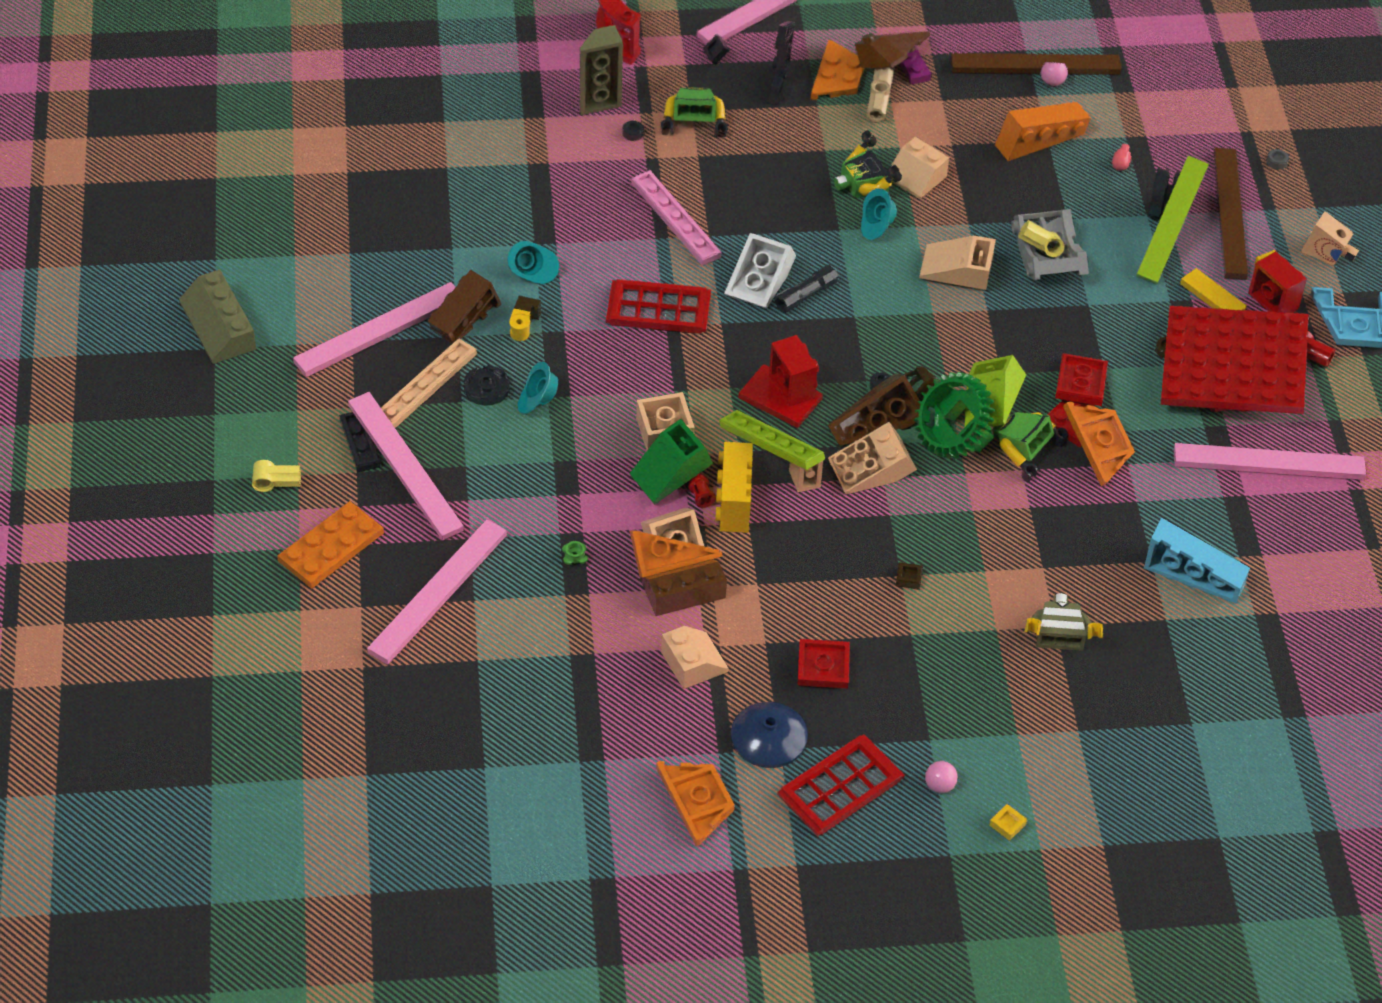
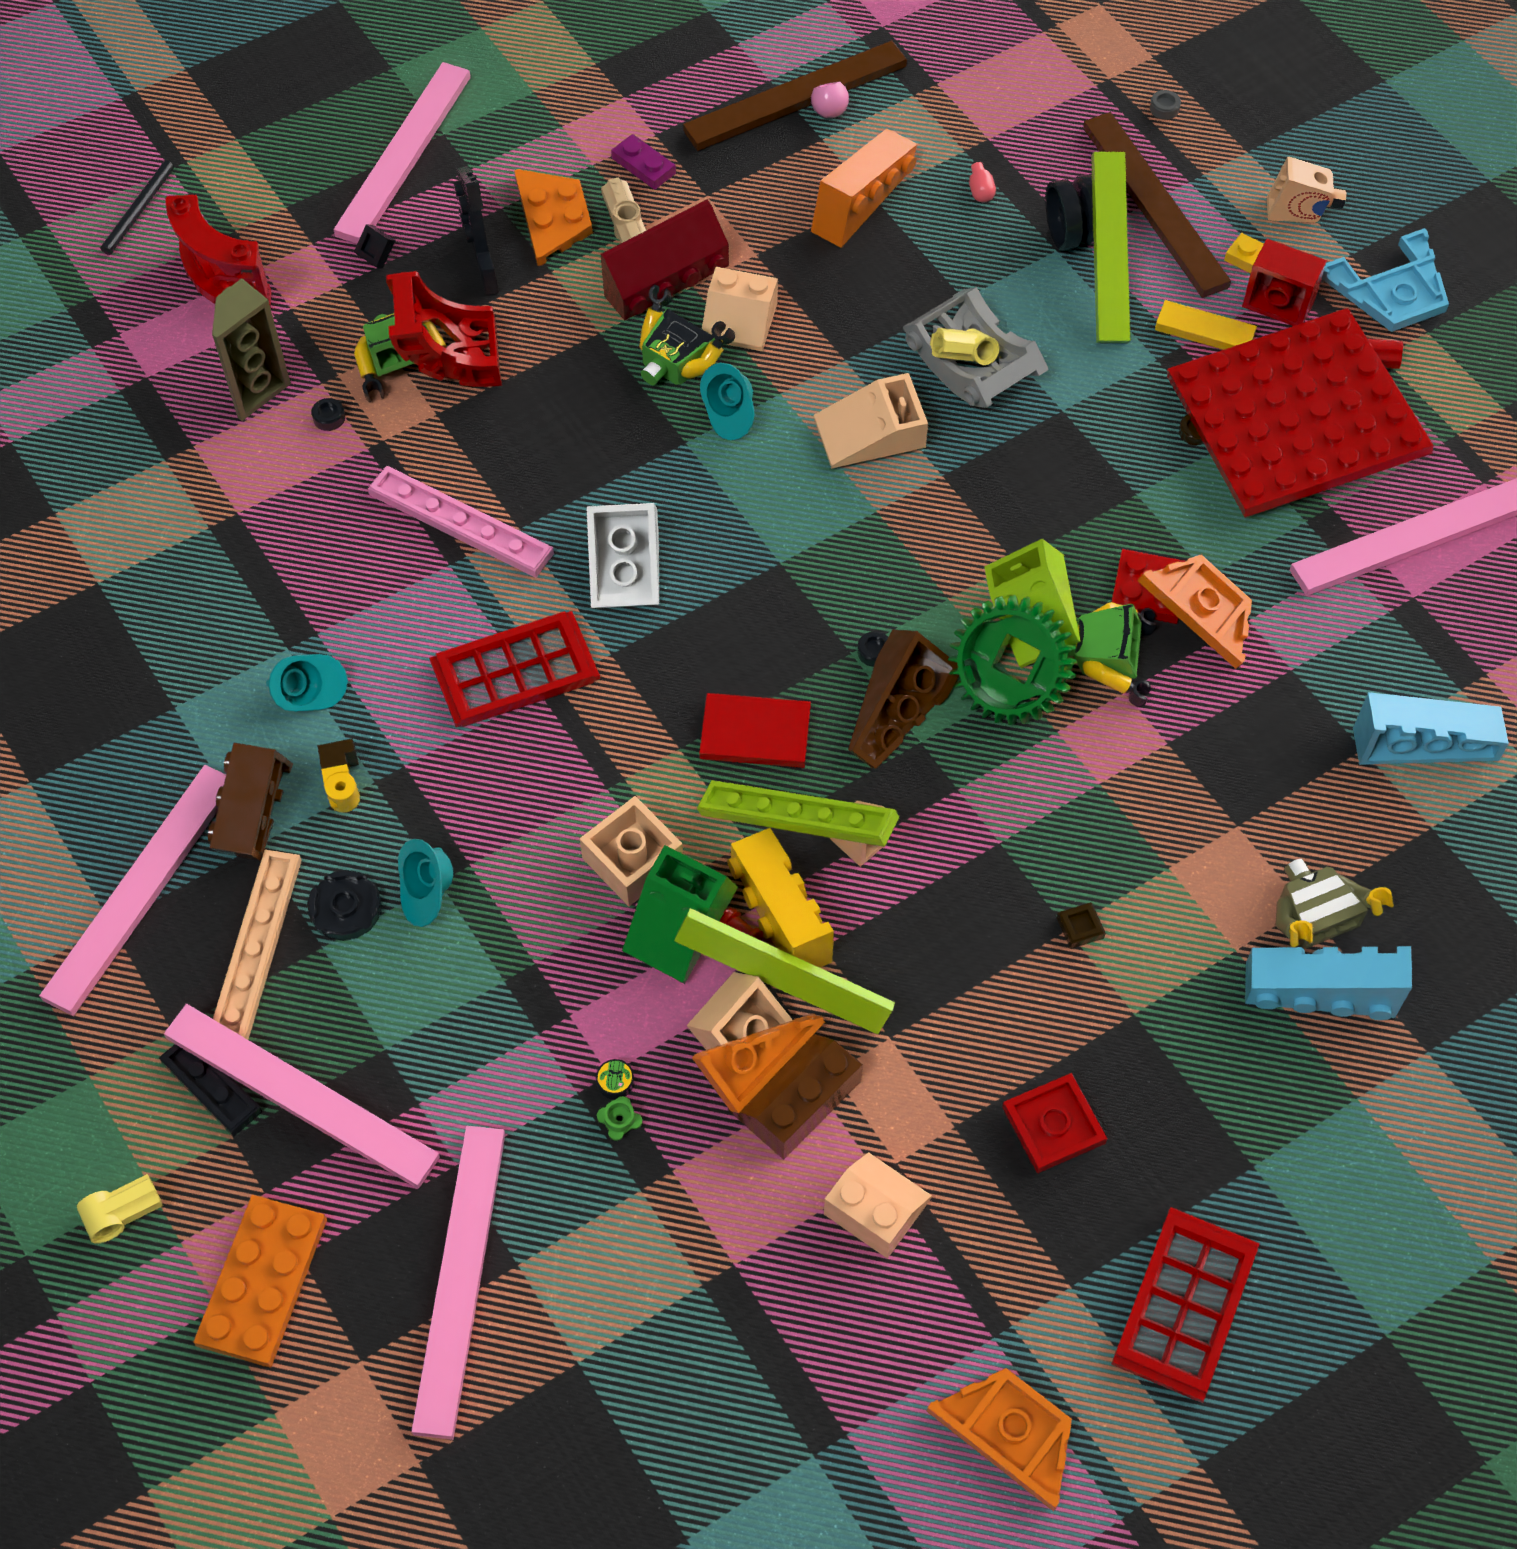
camera: 25 degrees left, 10 degrees up
(585, 533) = (615, 1079): none -> tile
(712, 516) = (784, 971): none -> lime tile
(730, 131) = (463, 323): none -> red fence
(766, 744) = (1038, 1295): dark blue dish -> none
(793, 370) = (764, 690): red brick -> none
(795, 295) = (688, 569): black axle -> none
(872, 461) = (934, 775): light nougat slope -> none
(888, 49) = (606, 152): reddish brown wedge -> none
(889, 119) = (667, 255): none -> dark red slope
(921, 374) = (941, 619): dark brown piece -> none
(941, 777) = (1311, 1223): bright pink piece -> none
(1008, 822) = (1434, 1247): yellow plate -> none
(1038, 663) = (1329, 980): none -> medium azure wedge
(1081, 379) = (1126, 526): red tile -> none

